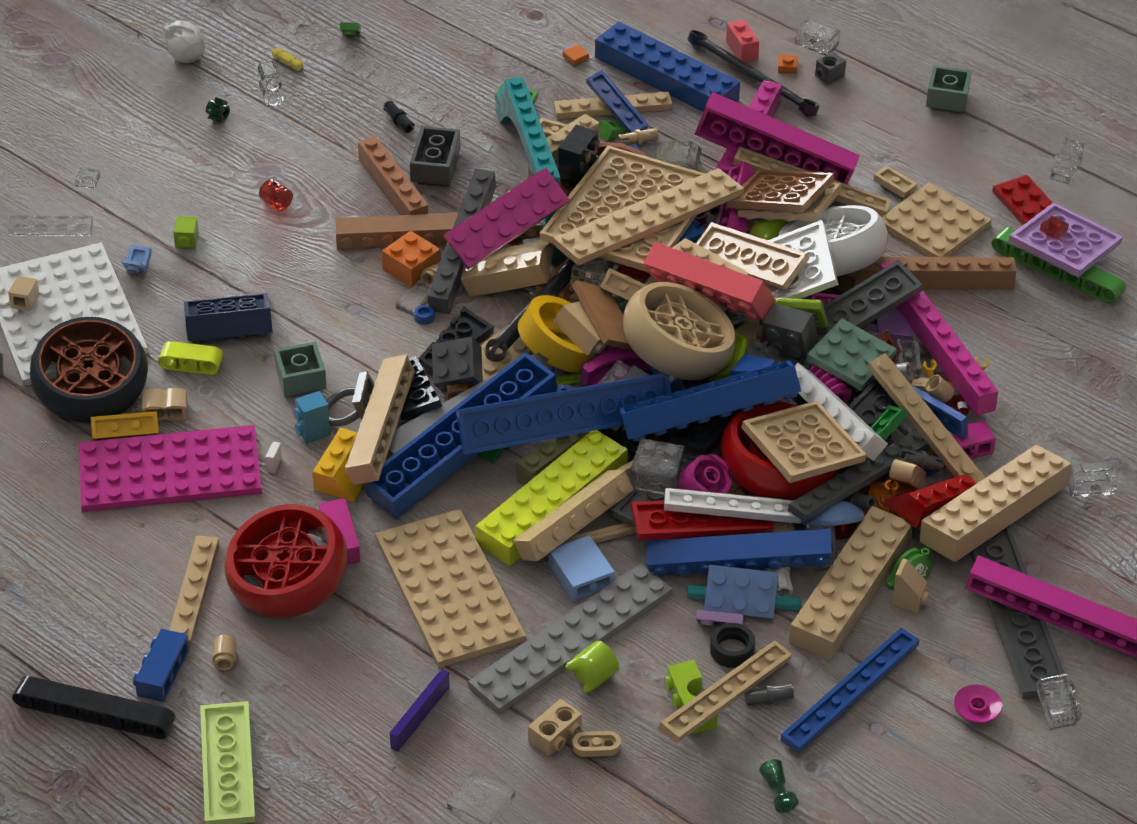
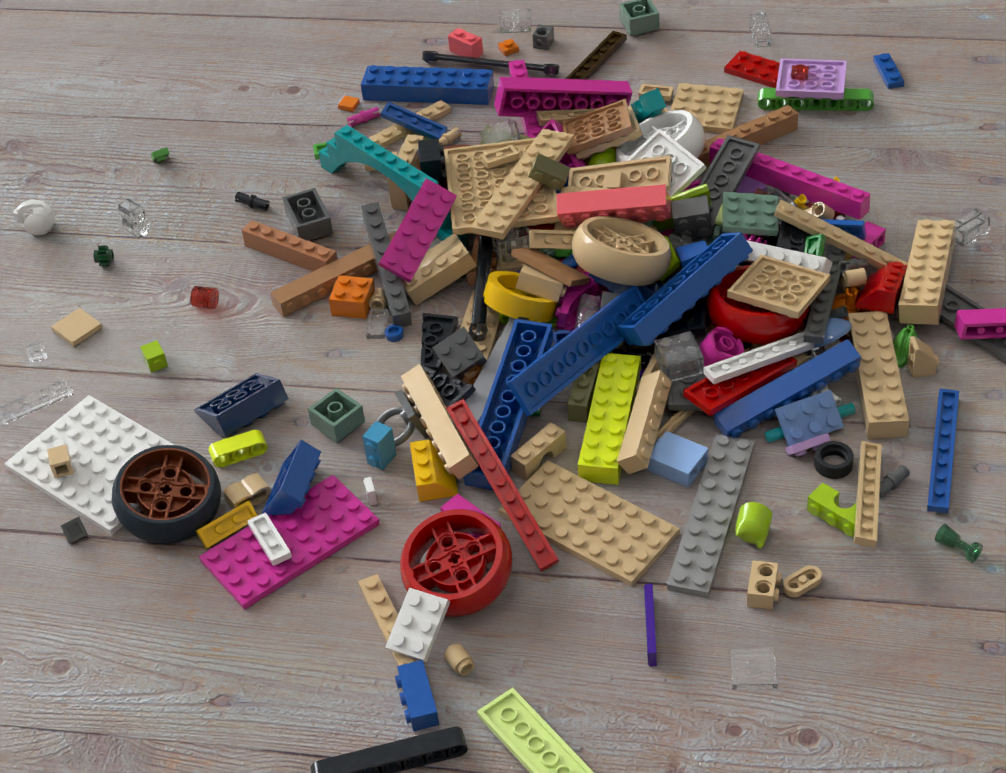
camera: 25 degrees left, 0 degrees up
(137, 259) = (130, 394): light blue bracket -> none
(142, 170) = (76, 327): none -> tan tile
(145, 456) = (269, 539): none -> white plate
(205, 600) = (417, 624): none -> white plate
(210, 411) = (293, 480): none -> blue slope
(287, 59) = (116, 196): light yellow axle -> none
(386, 509) = (502, 485): none -> red plate
(441, 495) = (548, 441): none -> tan arch
(575, 75) = (363, 116): none -> dark pink pin
(649, 178) = (500, 156): none -> tan plate
(676, 216) = (549, 172): none -> olive brick
(737, 254) = (613, 179): none -> tan tile
(854, 190) = (649, 105): none -> teal arch
(864, 117) = (598, 56): none -> dark brown plate

